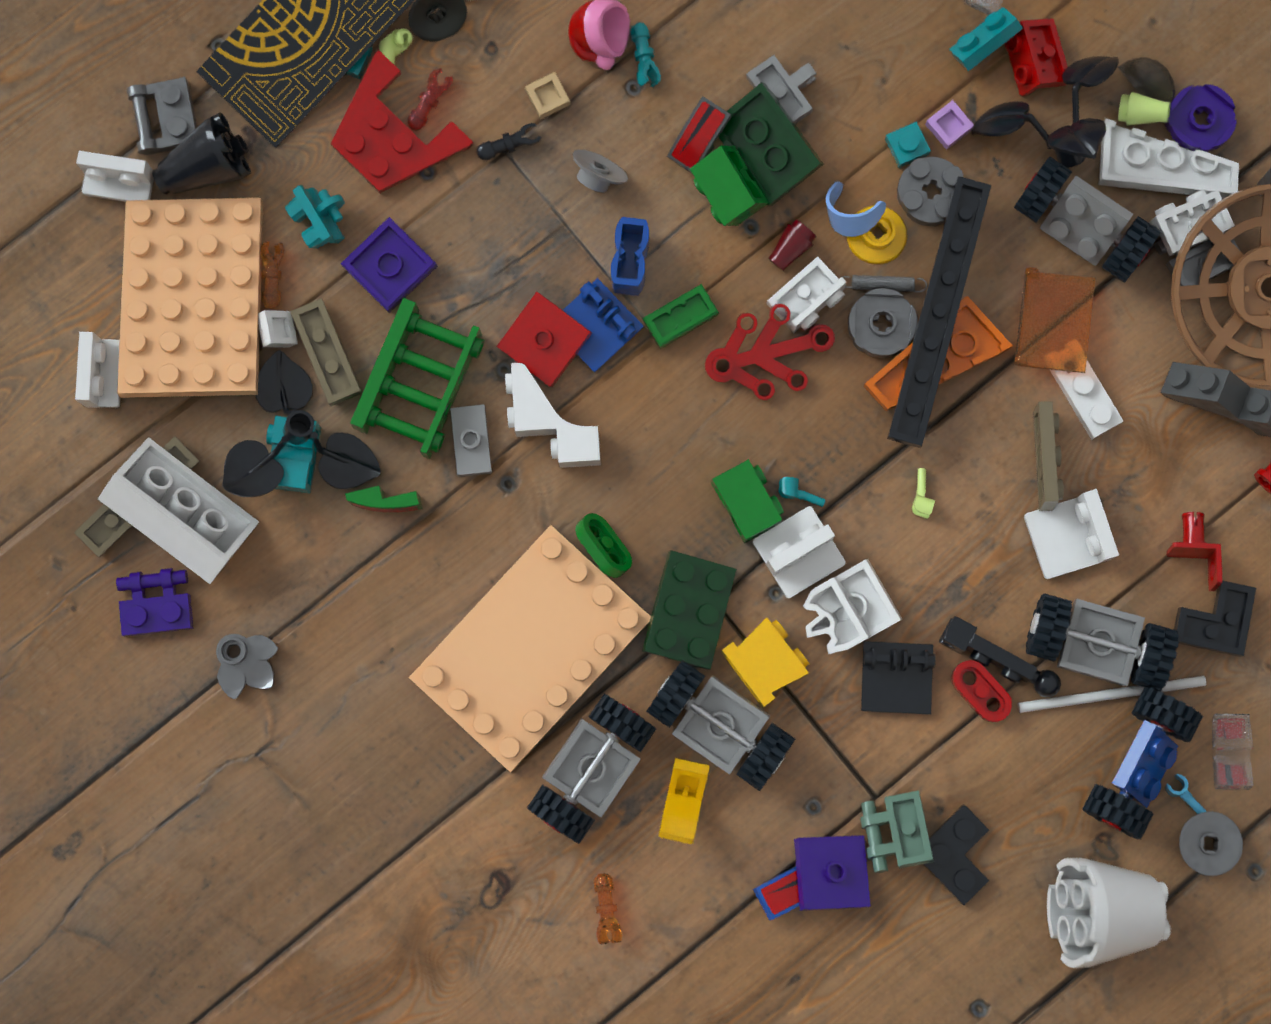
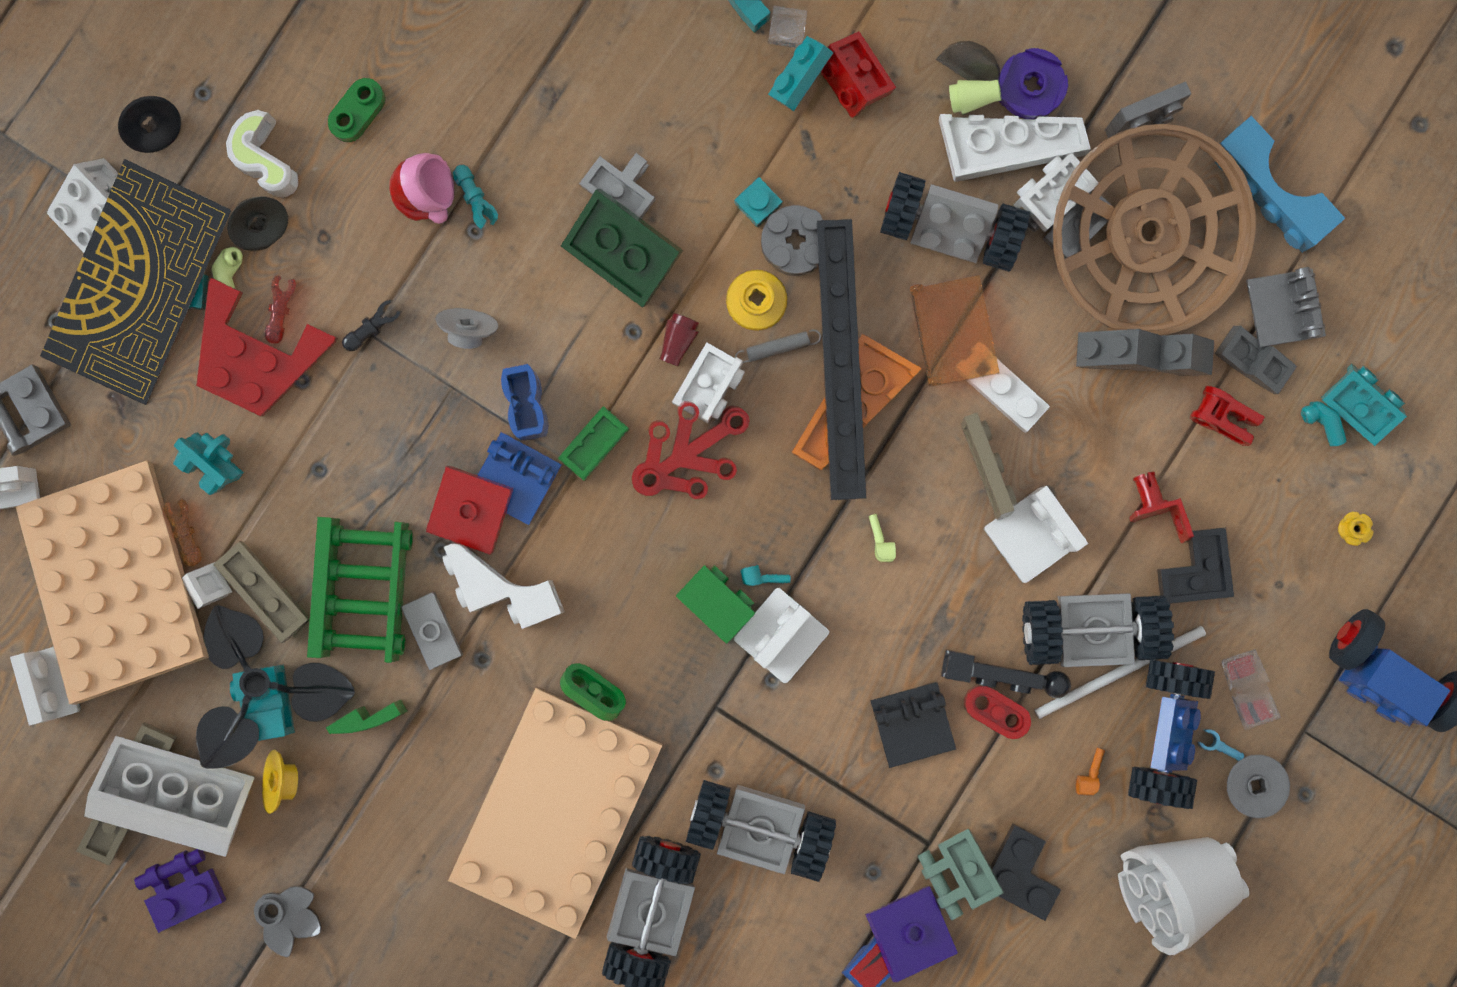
camera: 20 degrees left, 5 degrees up
(204, 159) = (77, 441): black cone -> none
(282, 530) = (278, 781): none -> yellow piece
(389, 265) = (294, 486): dark purple plate -> none
(547, 95) = (392, 267): tan plate -> none
(683, 801) = (749, 917): yellow bracket -> none
(689, 610) = (694, 726): dark green plate -> none
(699, 134) = (553, 260): red slope -> none
(728, 186) = (597, 301): green brick -> none
(766, 661) = (784, 752): yellow hips -> none
(851, 224) = (730, 300): light blue helmet -> none
(851, 608) = (848, 674): white plate -> none
(868, 337) = (801, 370): flat silver plate -> none
(949, 124) = (792, 169): lavender plate -> none
(1048, 790) = (1090, 784): none -> orange hand
(1071, 142) = (913, 152): black plant -> none

